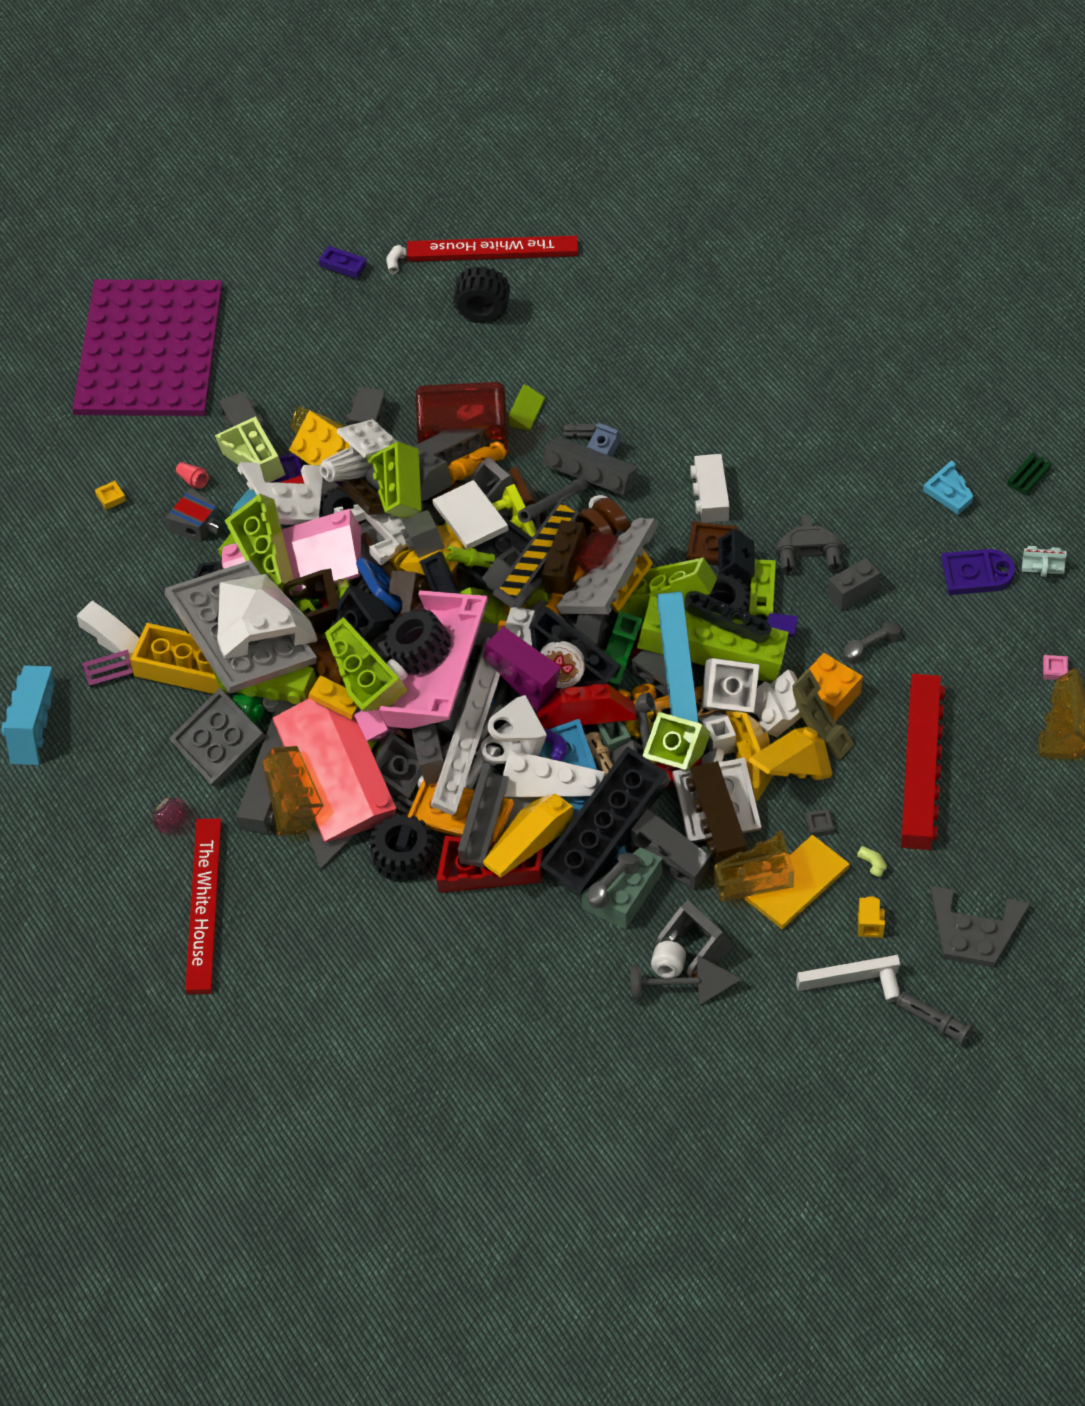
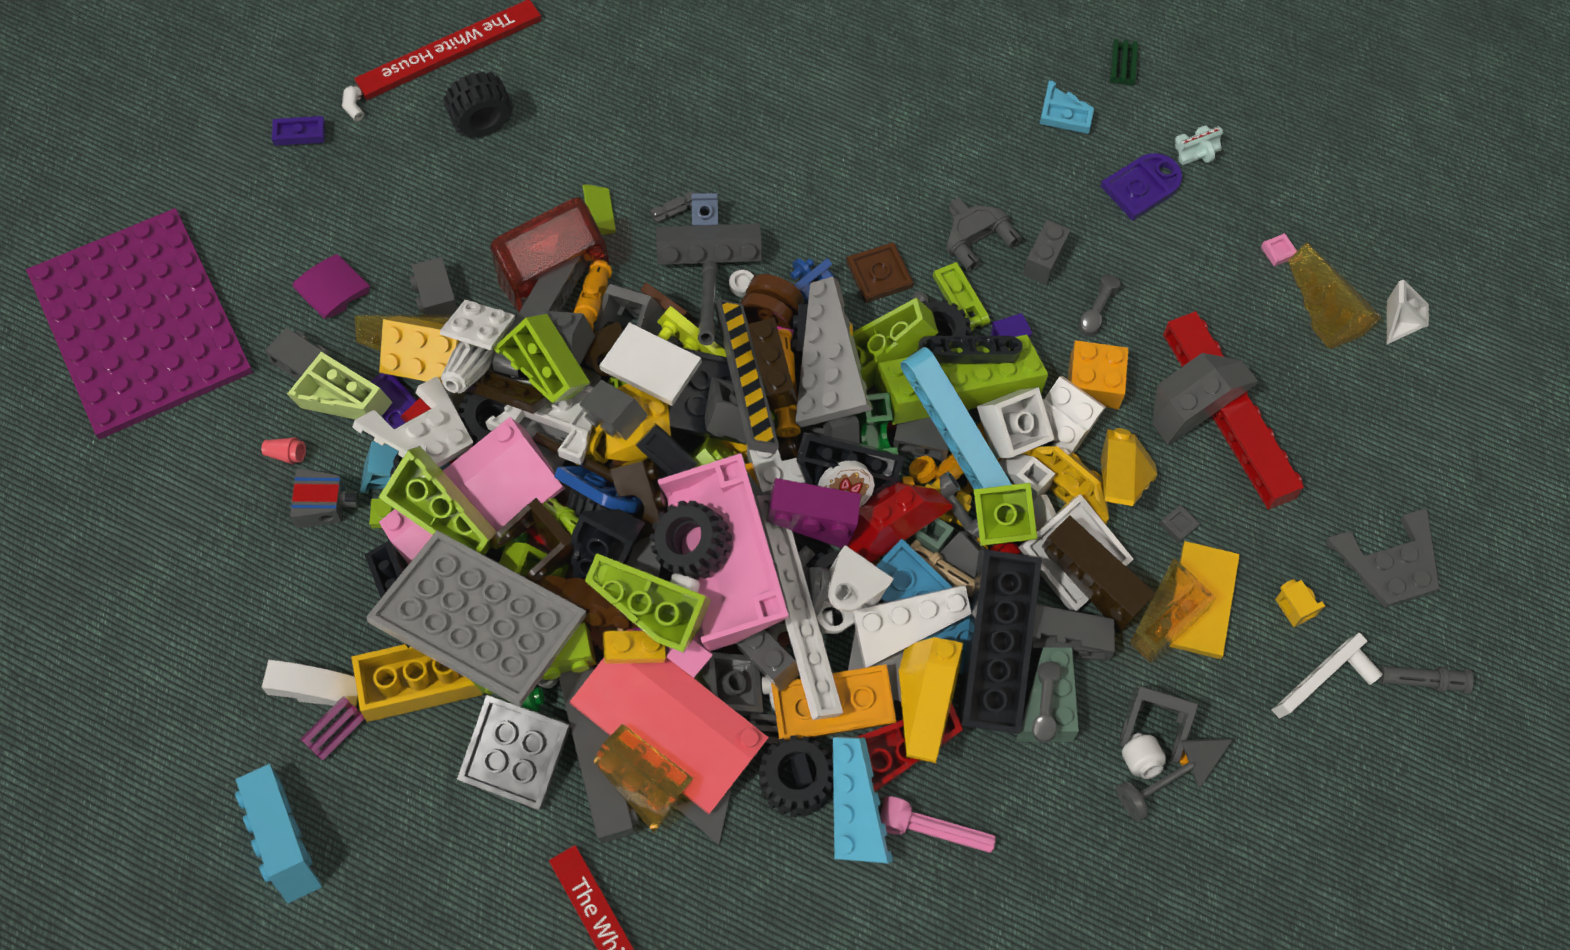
camera: 35 degrees left, 10 degrees up
(110, 495) = (204, 517): yellow plate -> none
(170, 815) = (516, 872): clear pink head -> none
(255, 611) = (492, 597): white wedge -> none
(295, 379) = (330, 286): none -> magenta slope
(429, 878) = (856, 813): none -> medium azure wing
(458, 911) = (898, 817): none -> bright pink axle
(469, 557) = (682, 413): lime pin -> none
(482, 817) = (874, 703): dark grey fence -> none
(558, 744) = (901, 580): dark purple arm -> none
(595, 550) = (799, 340): clear red slope -> none
(663, 520) = (803, 270): none -> blue hips
(710, 488) = (842, 213): white brick -> none
(736, 555) = (922, 276): black brick -> none
(818, 717) = (1118, 415): olive slope -> none
(875, 859) = (1257, 535): yellowish green arm -> none
(896, 733) = (1198, 393): none -> dark grey wedge

